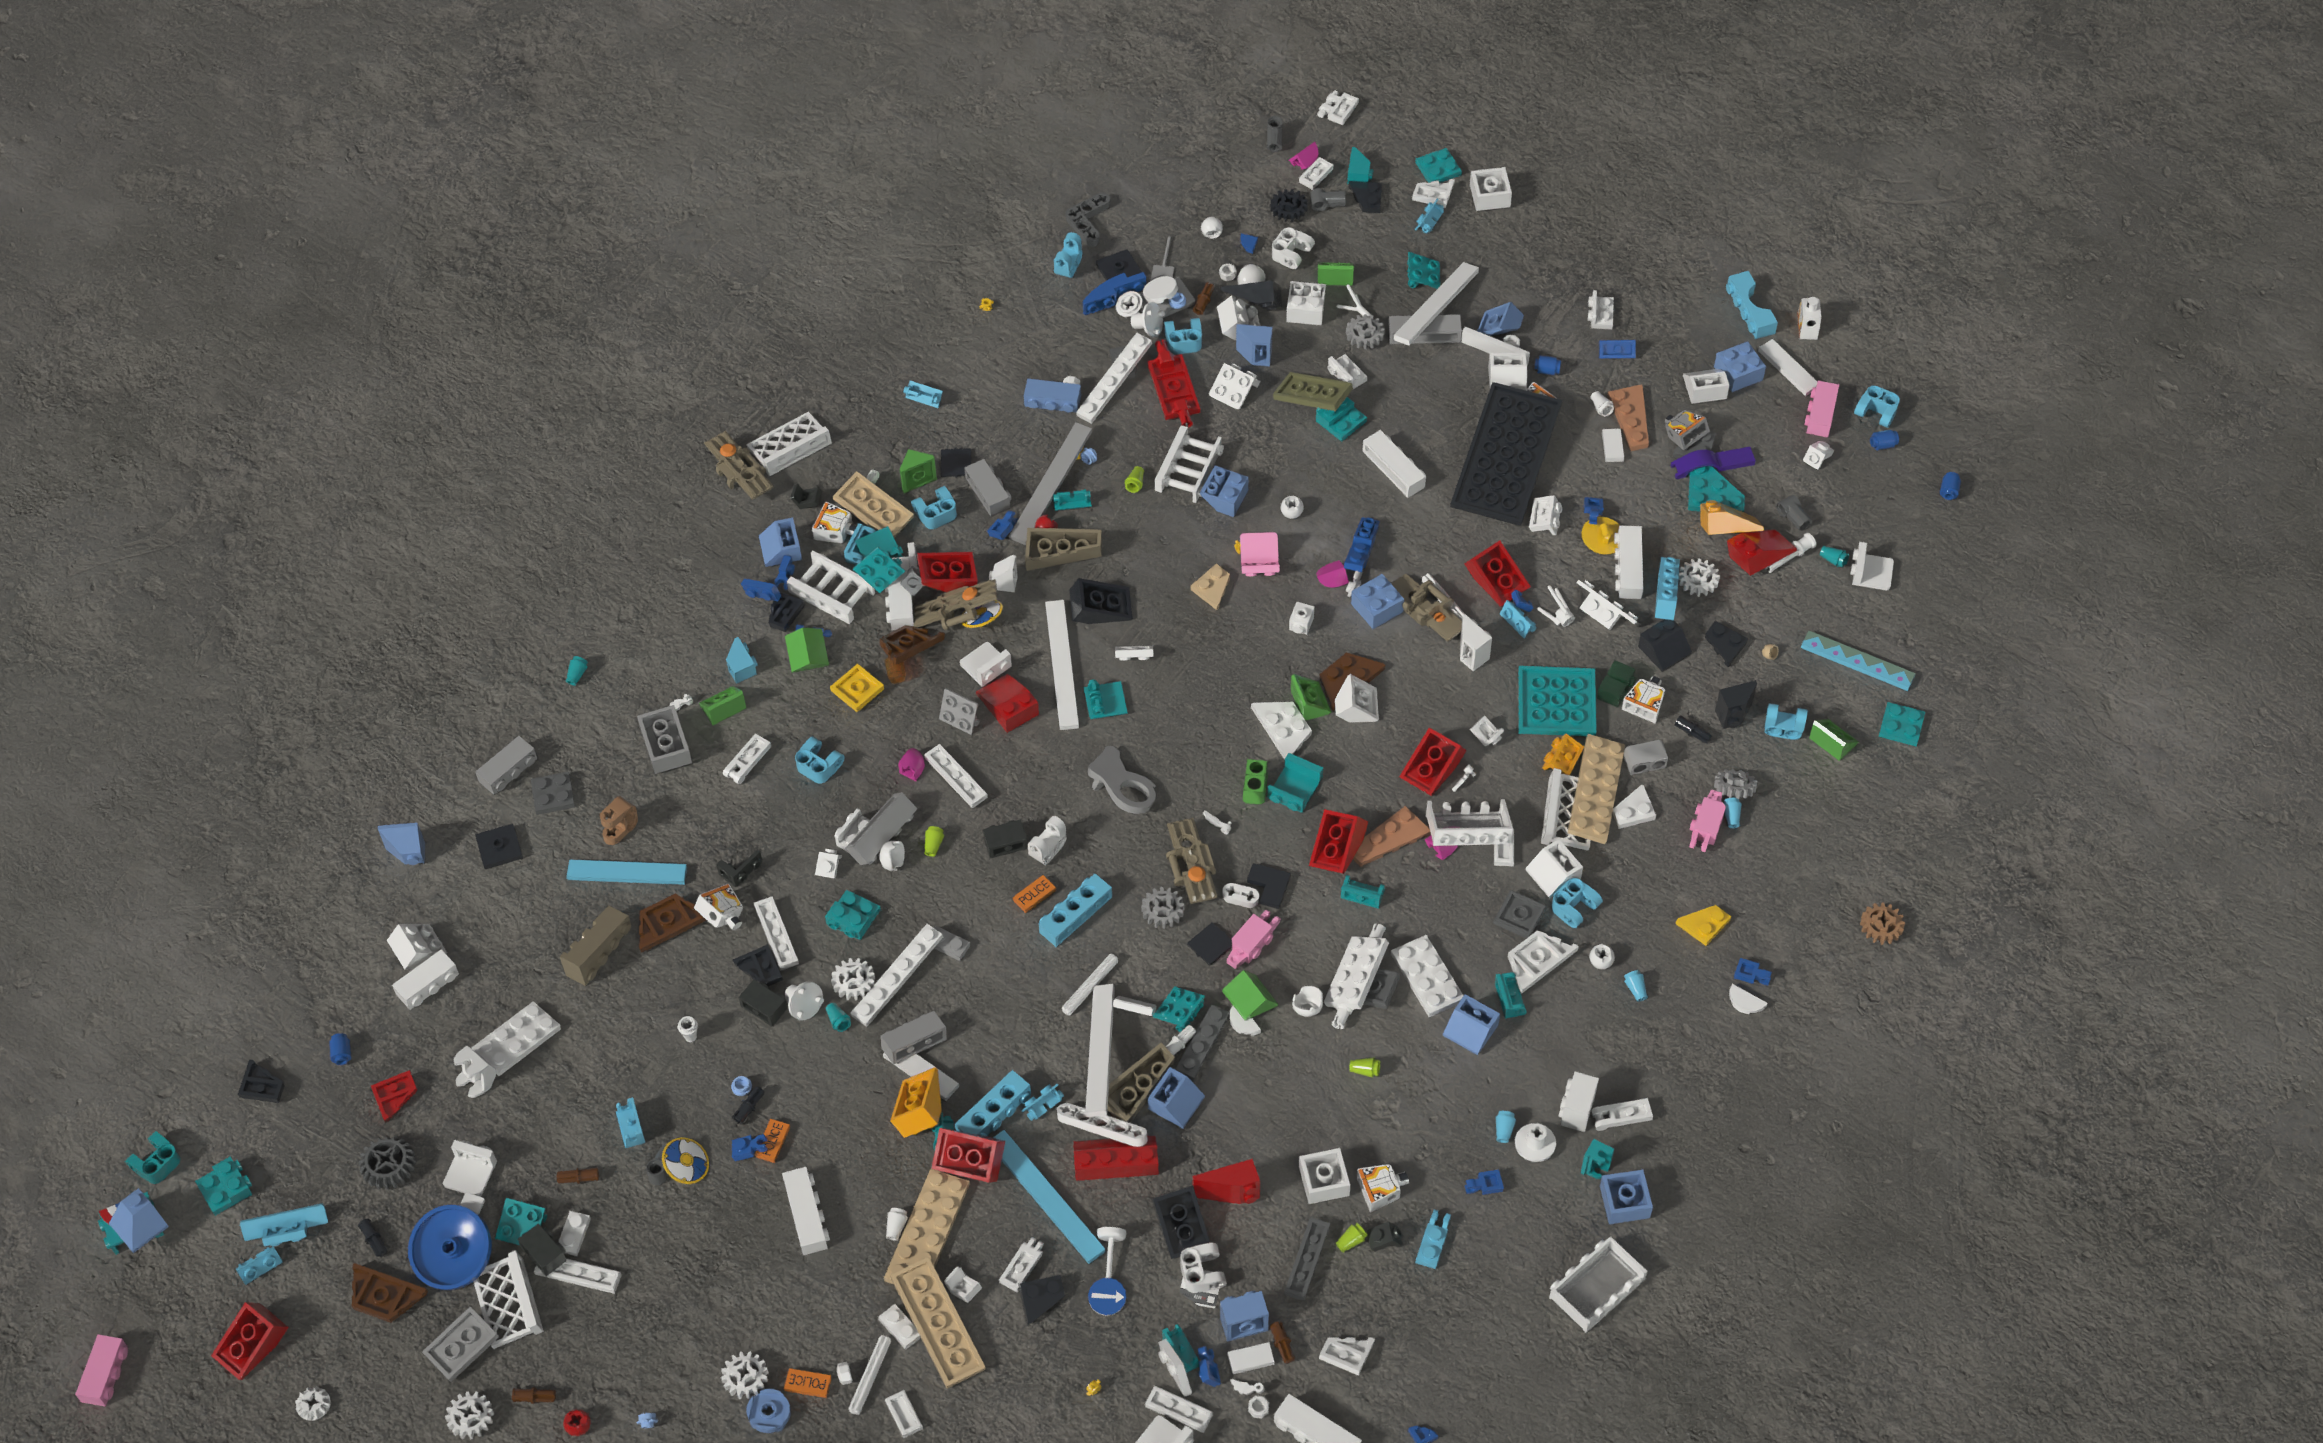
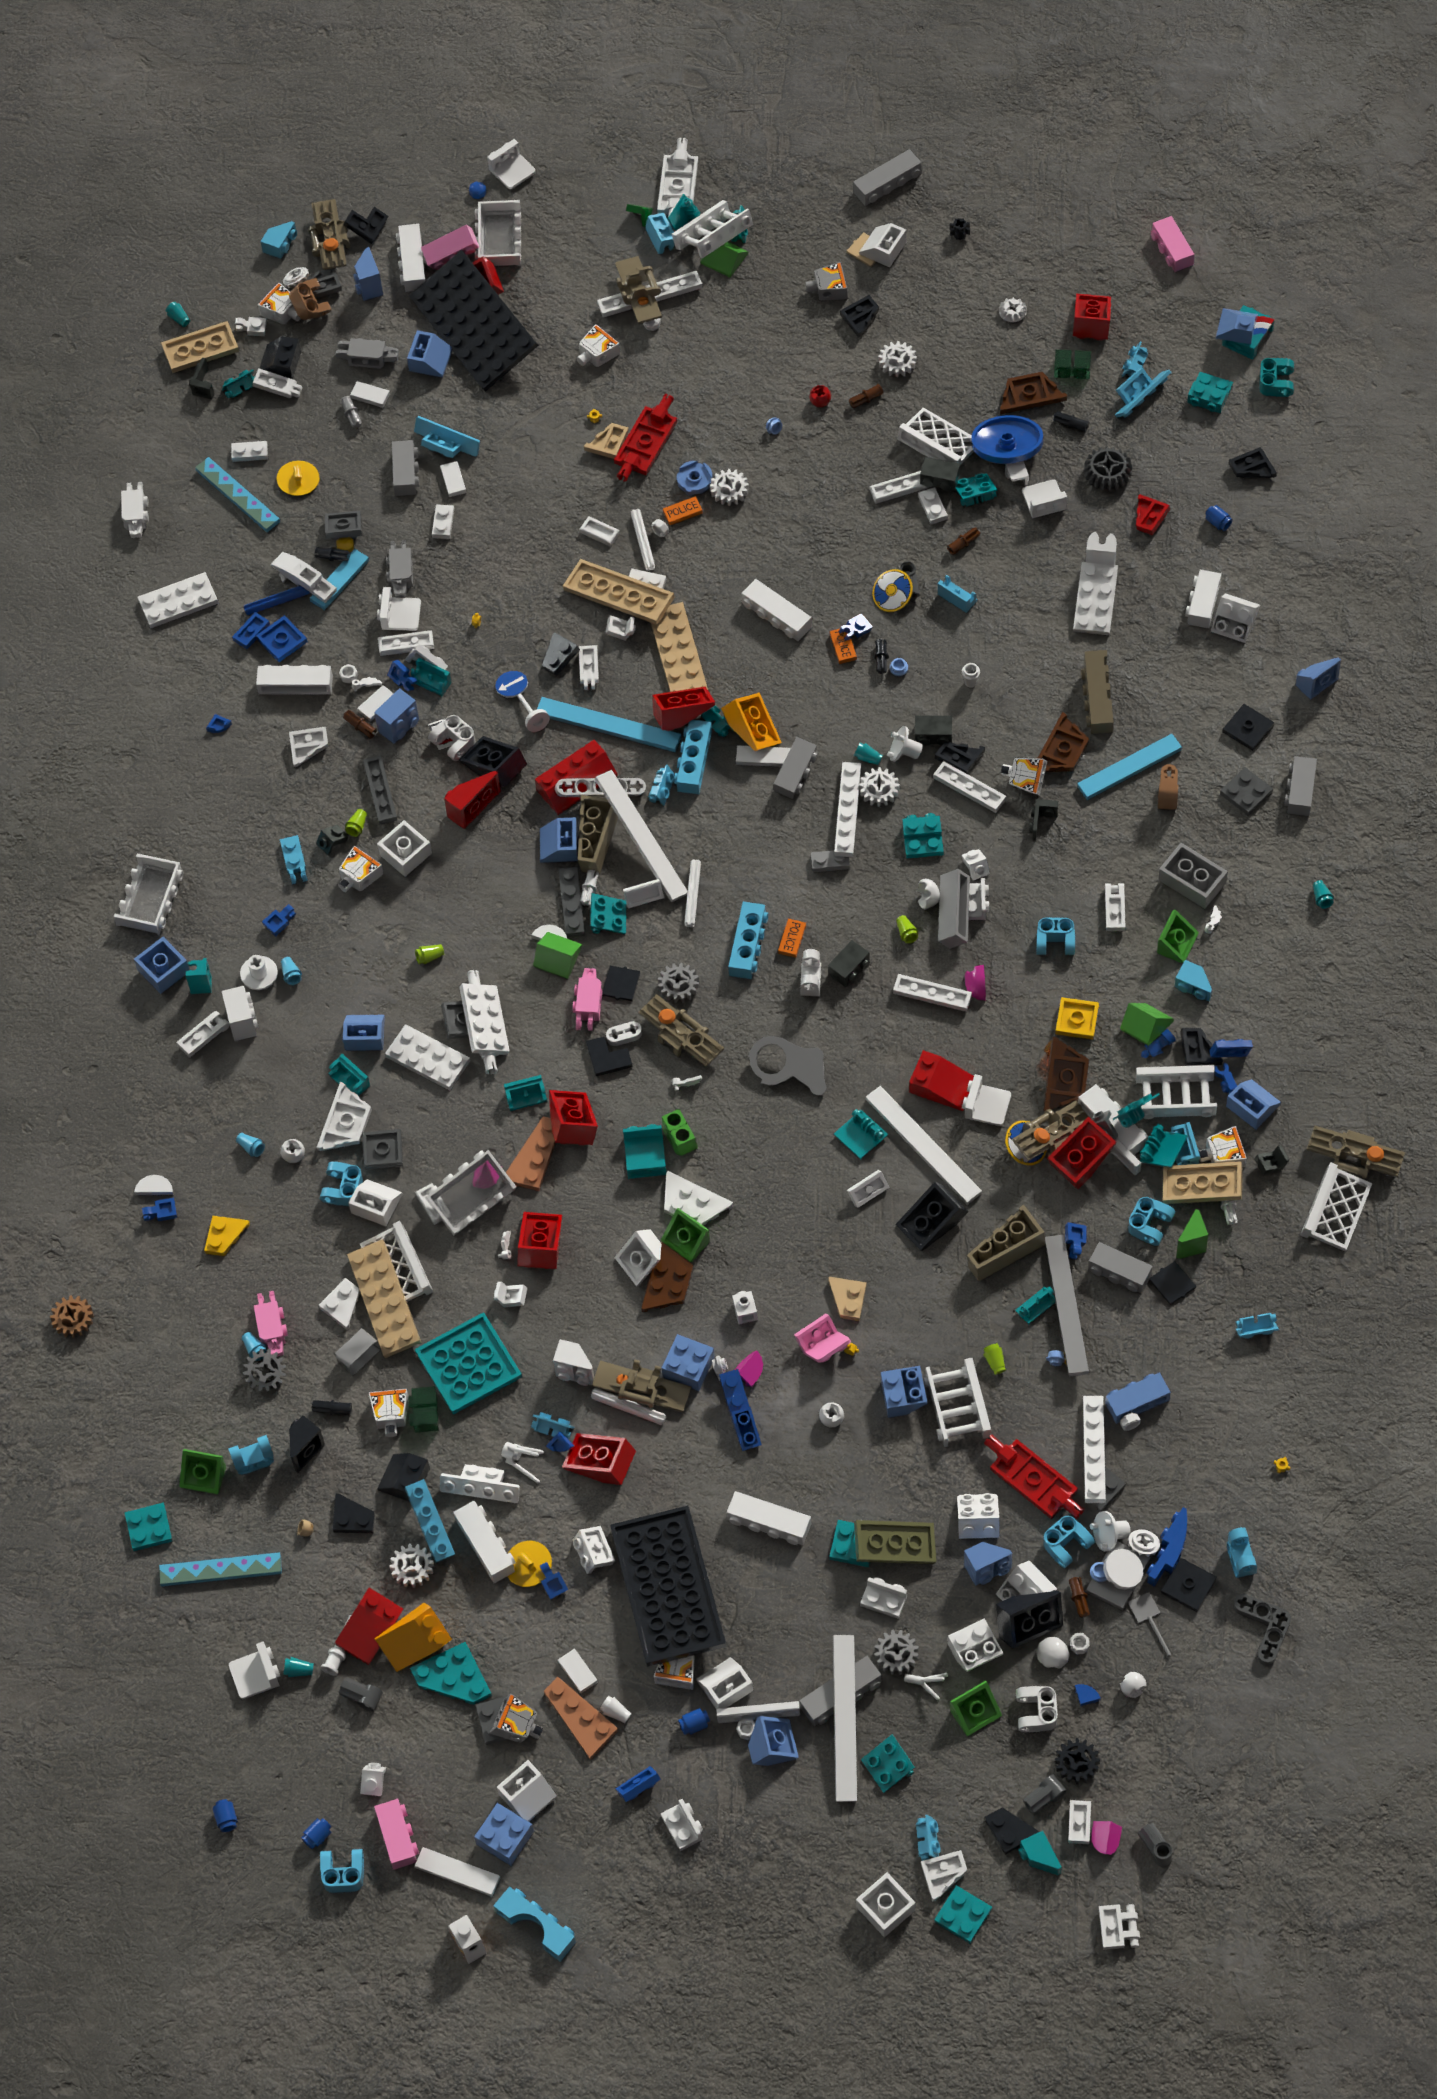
camera: 150 degrees right, 5 degrees up
(314, 1294) = (1081, 364): none -> clear green piece
(460, 1344) = (944, 393): light grey plate -> none
(895, 1223) = (704, 642): white cone -> none
(959, 711) = (979, 1038): light grey hinge -> none
(1005, 574) = (1033, 1187): white slope -> none
(1044, 522) = (1036, 1259): red piece -> none
(1308, 1001) = (507, 973): white hair -> none
(1563, 754) = (431, 1312): light orange bracket -> none
(1721, 460) = (468, 1709): dark purple piece -> none

